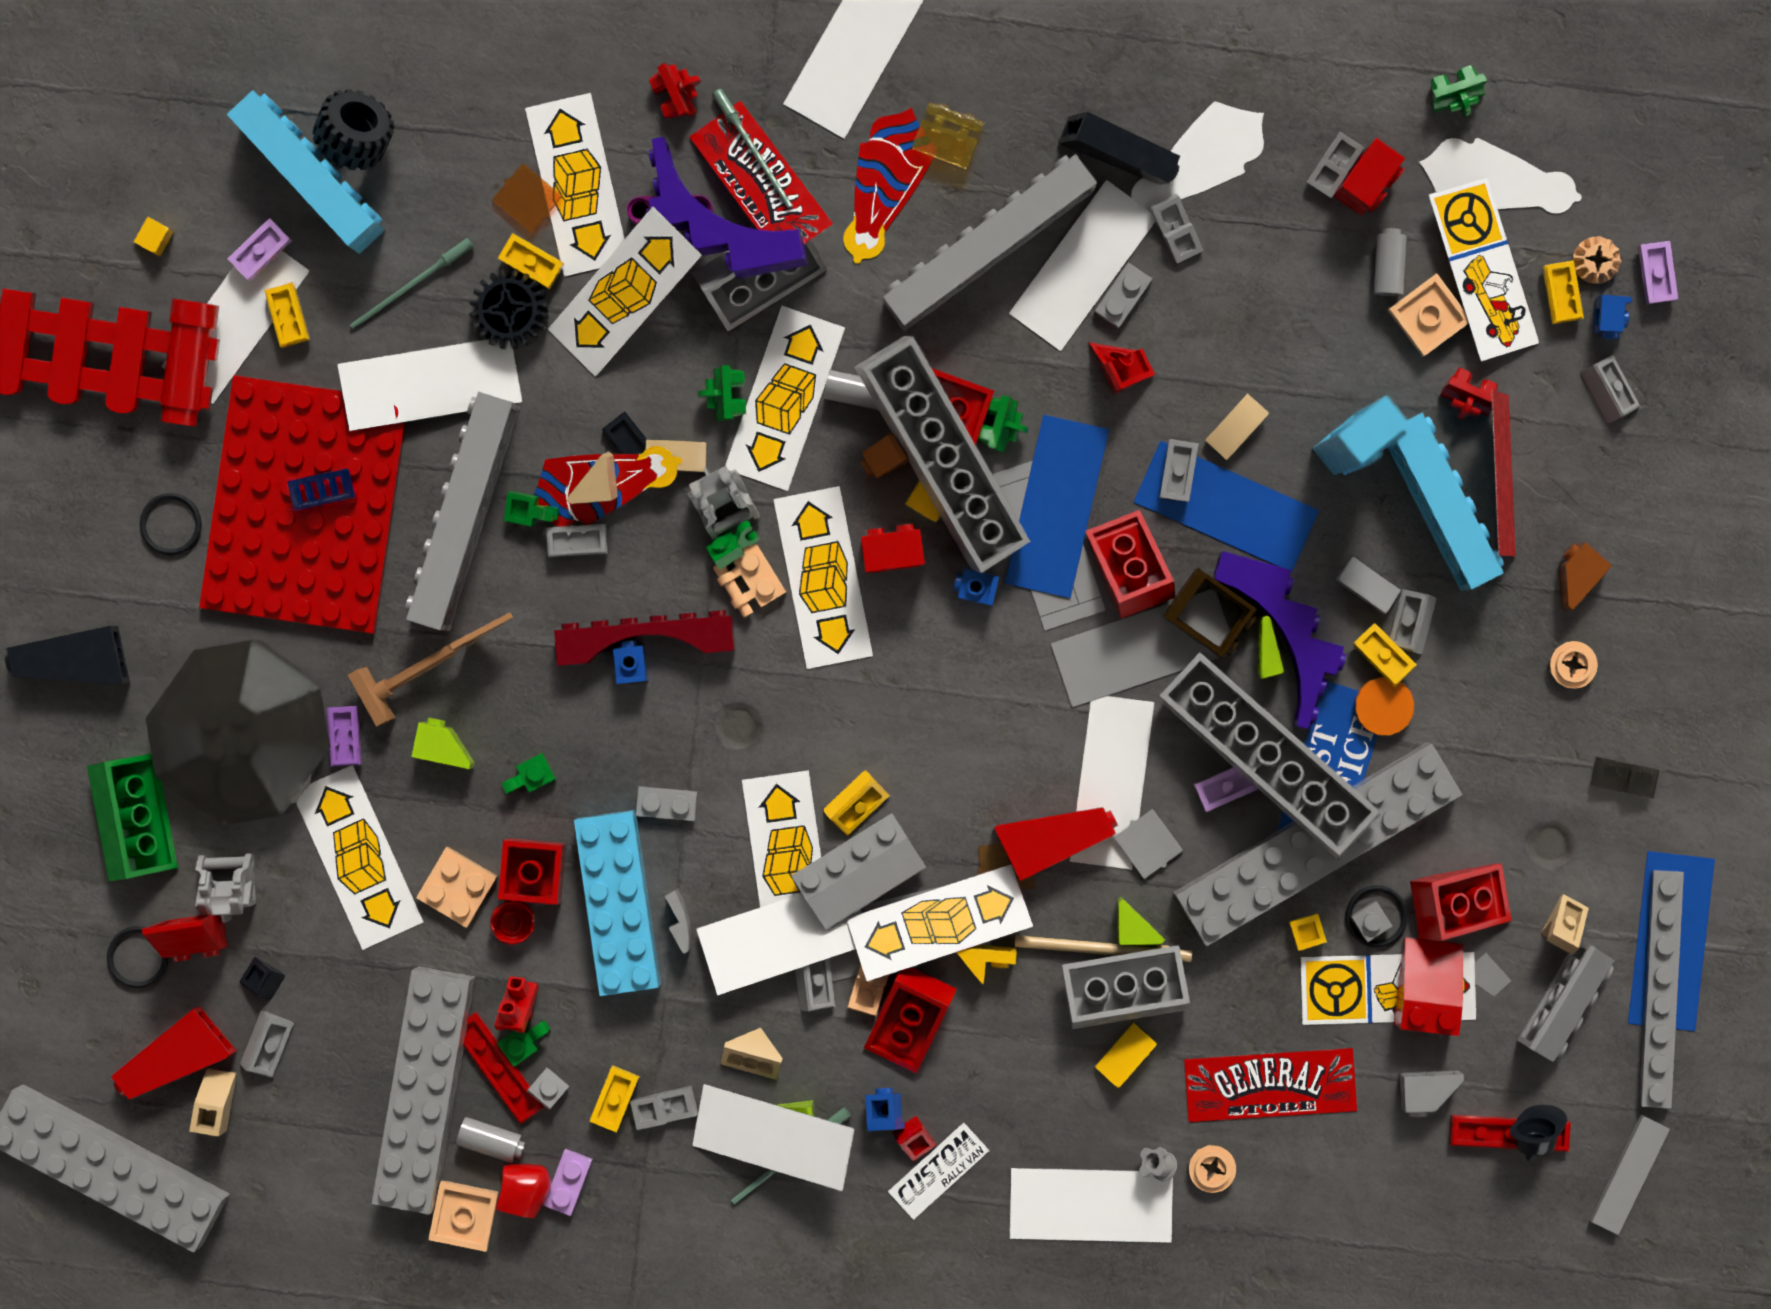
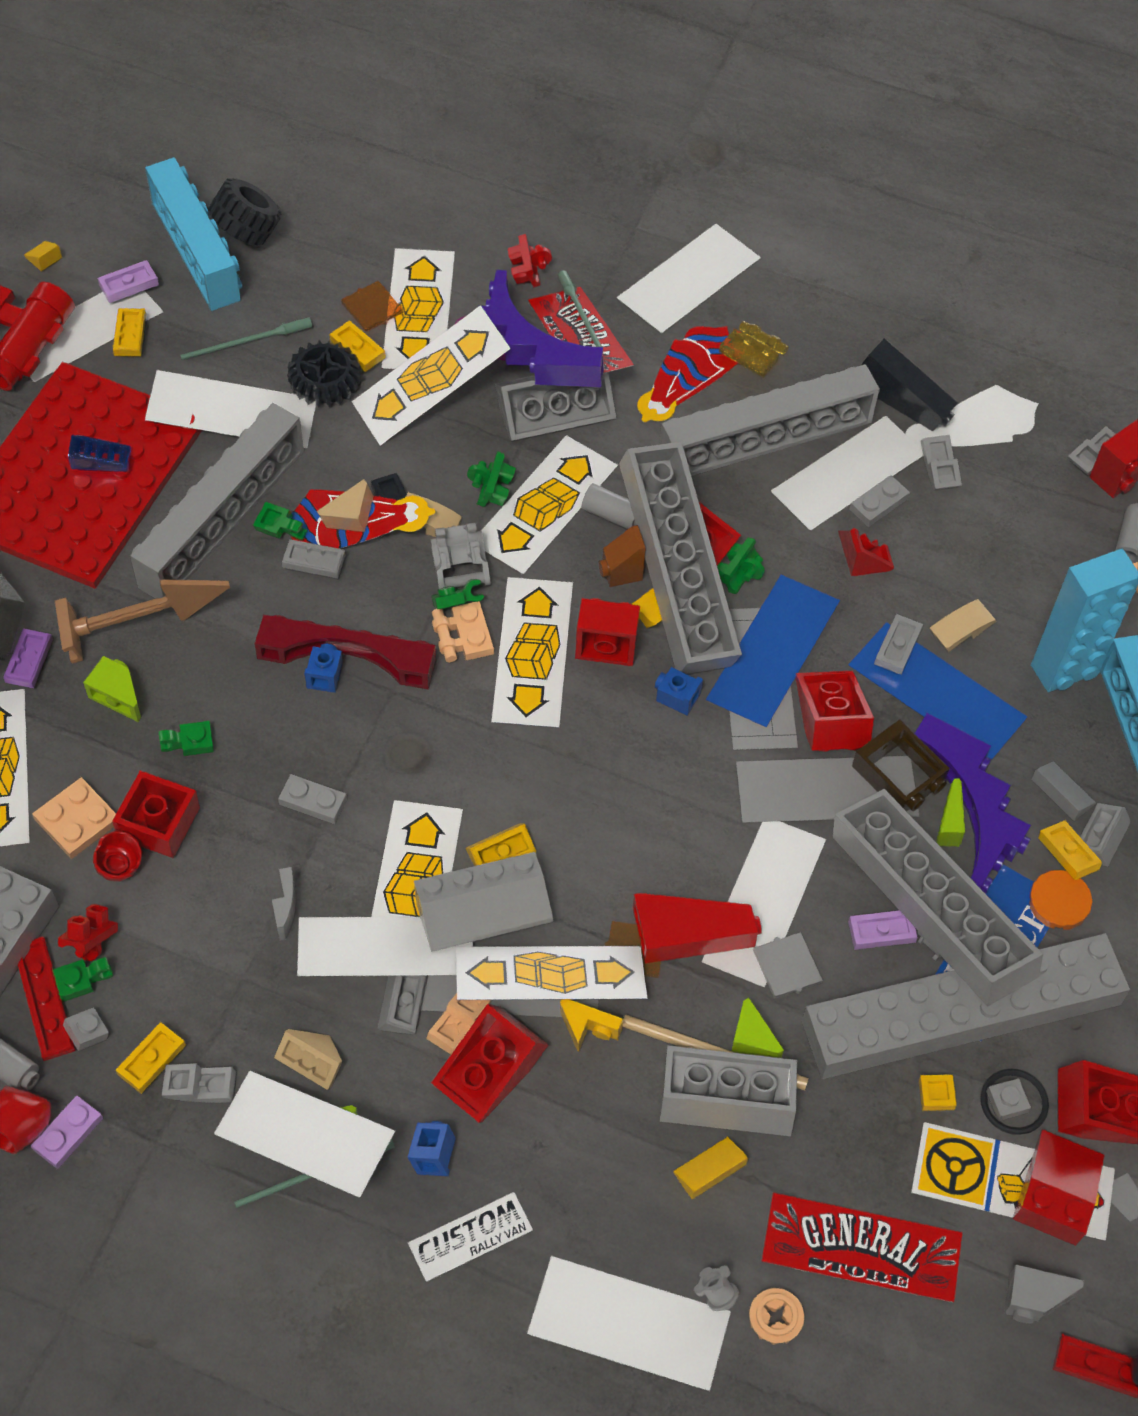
camera: 15 degrees right, 30 degrees down
(617, 902) = (228, 870): medium azure brick -> none
(914, 1138) = (455, 1193): red slope -> none

